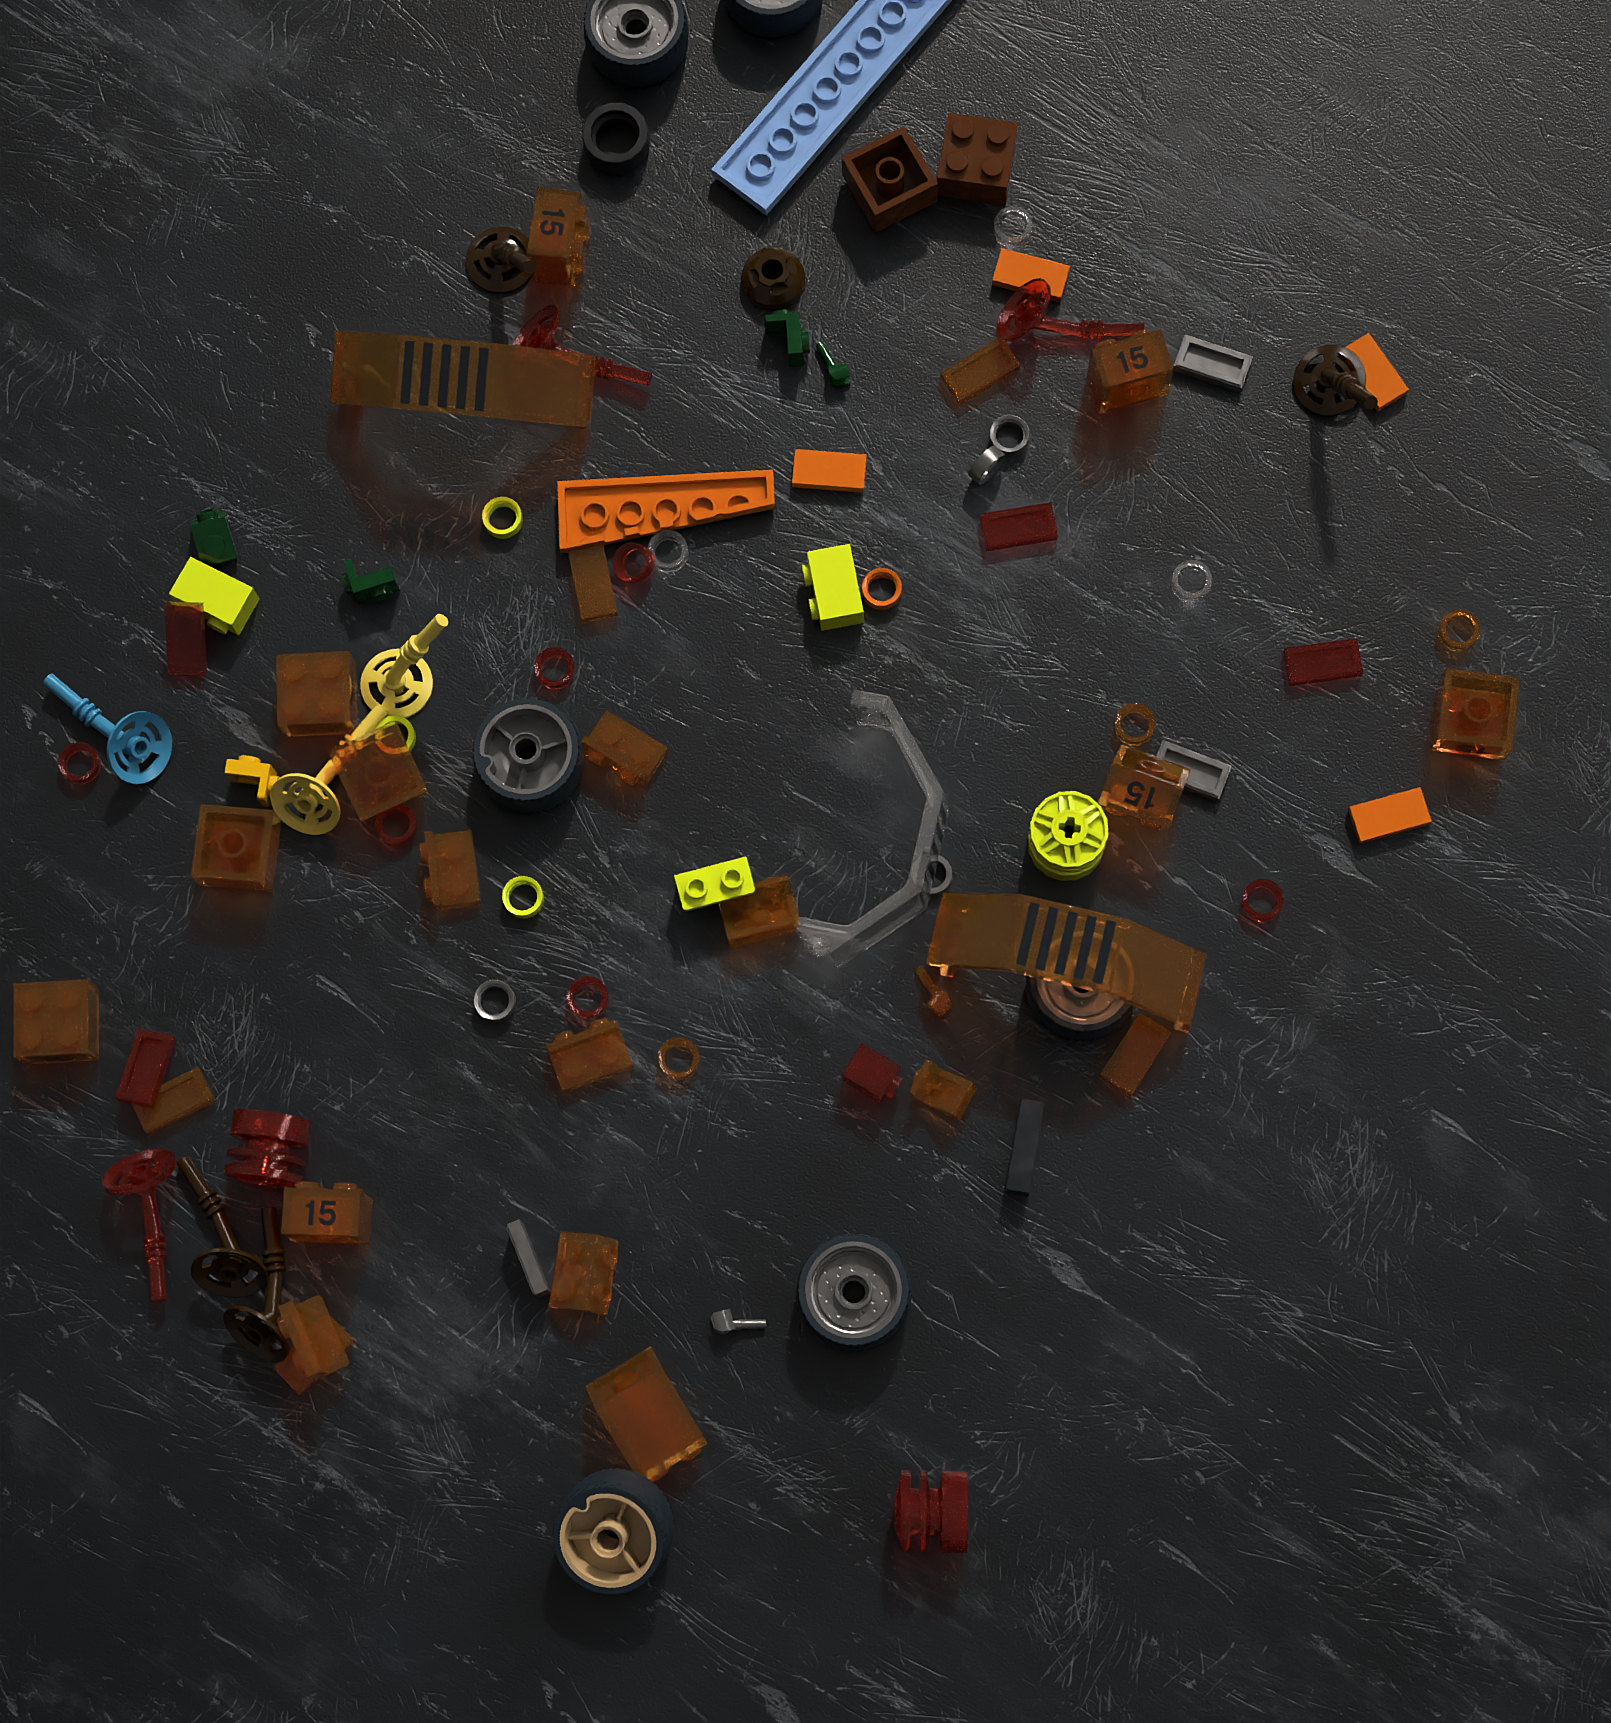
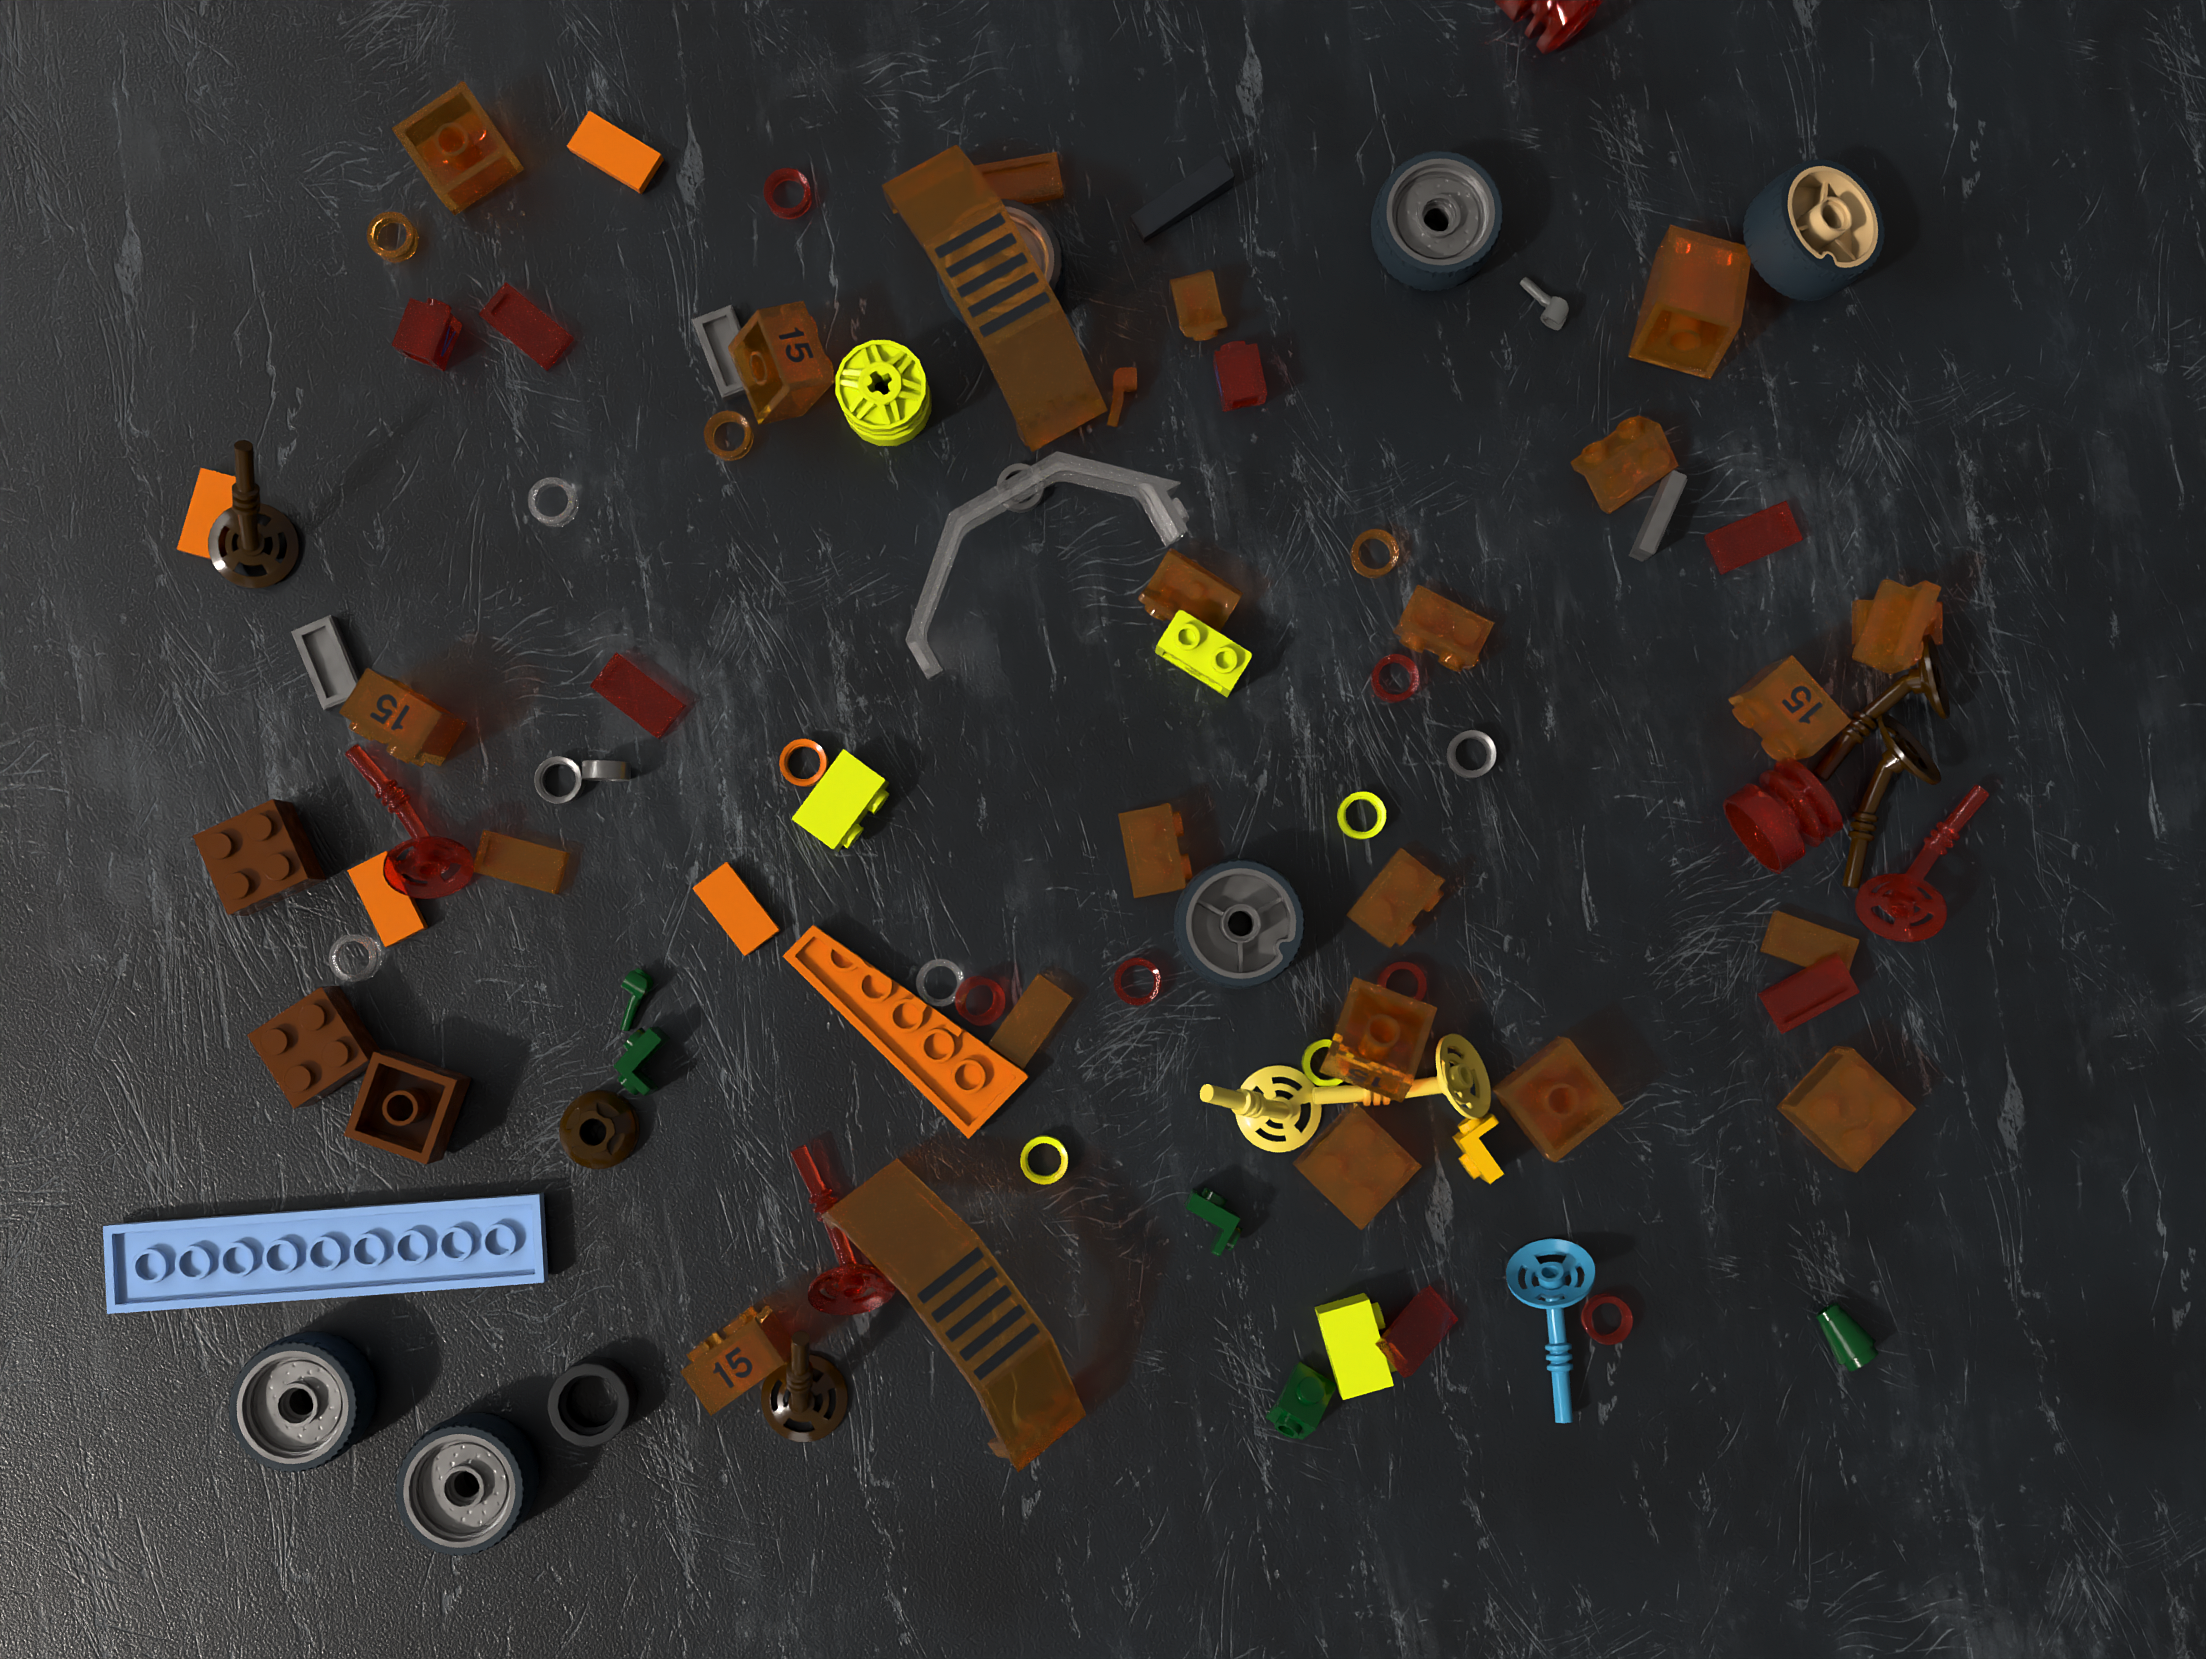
camera: 140 degrees left, 10 degrees up
(457, 1313) = (1753, 537): none -> clear red tile
(1124, 221) = (259, 857): none -> reddish brown brick
(1371, 595) = (427, 333): none -> clear red brick

